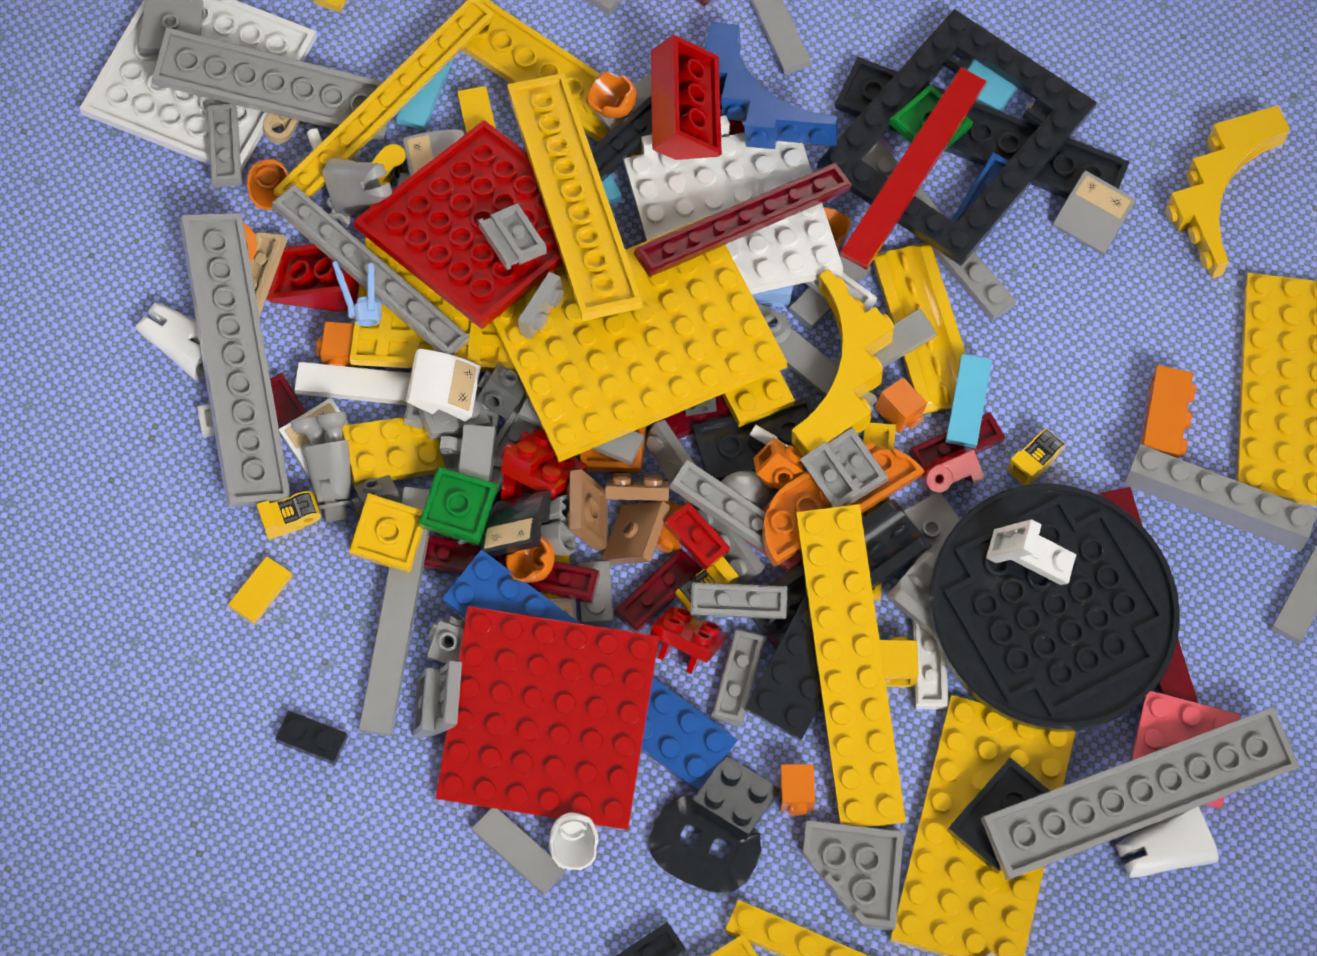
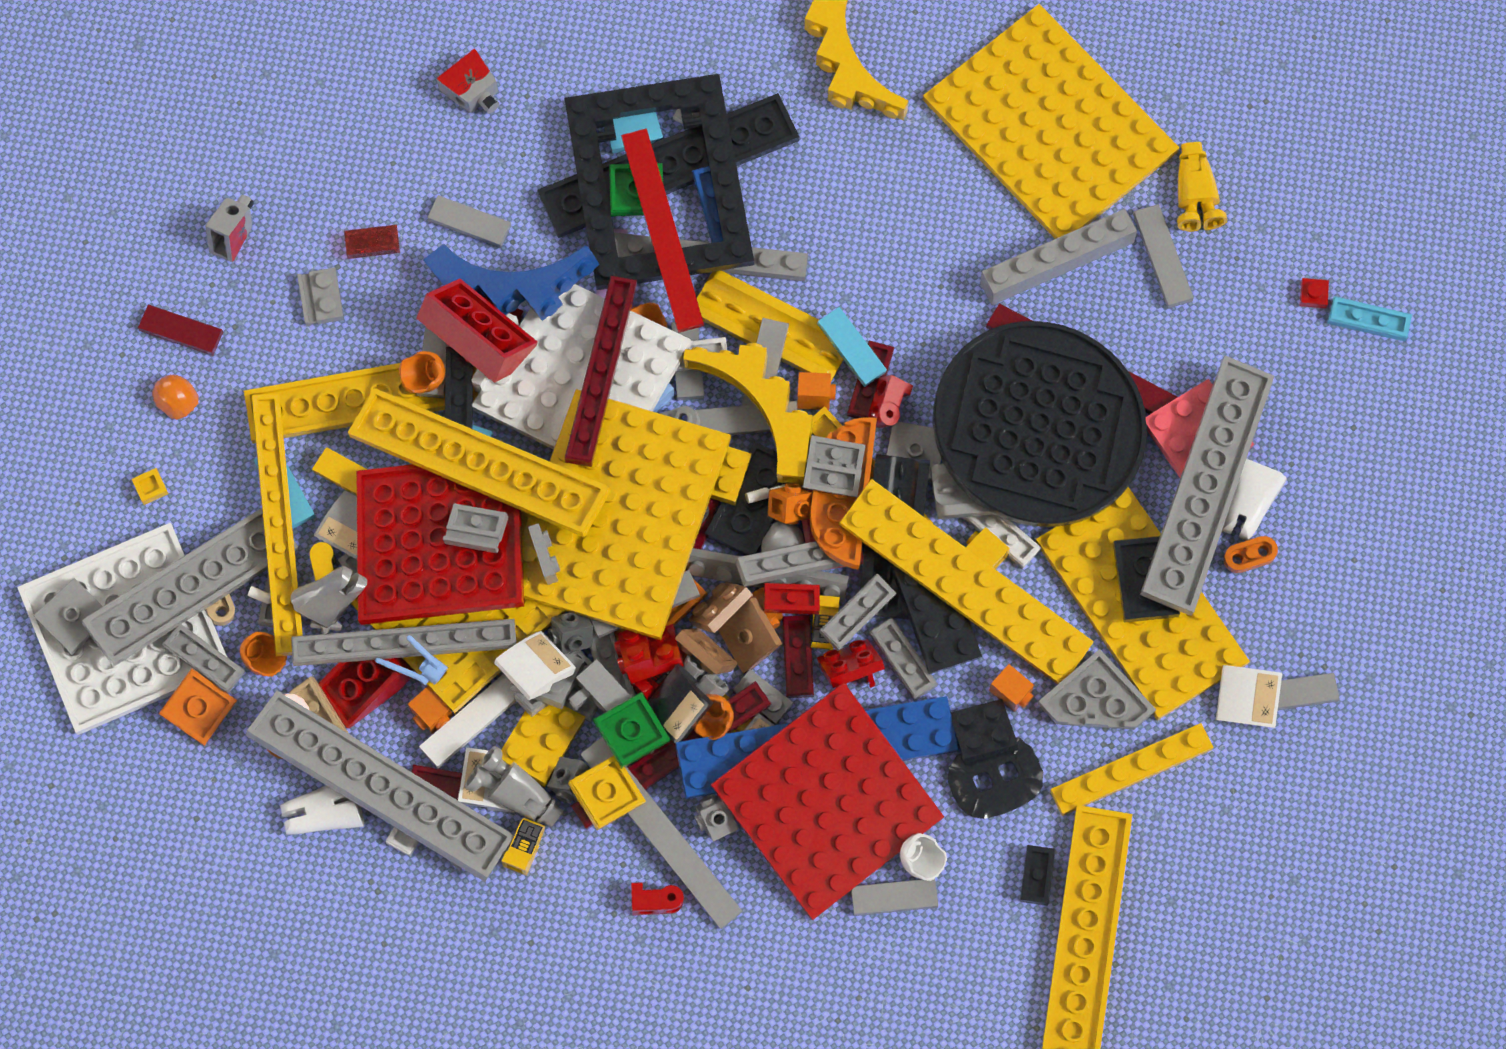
camera: 45 degrees left, 5 degrees up
(181, 176) = (197, 707): none -> orange plate
(260, 590) = (560, 911): yellow tile -> none
(311, 737) = (696, 964): black plate -> none
(342, 664) = (656, 901): none -> red leg
(437, 700) = (749, 860): light grey slope -> none
(1025, 546) = (997, 403): white bracket -> none
(1035, 457) = (926, 341): yellow leg -> none
(1094, 212) = (793, 148): light grey slope -> none
(1119, 887) = (1248, 553): none -> orange plate
(1167, 411) = (972, 234): orange brick -> none

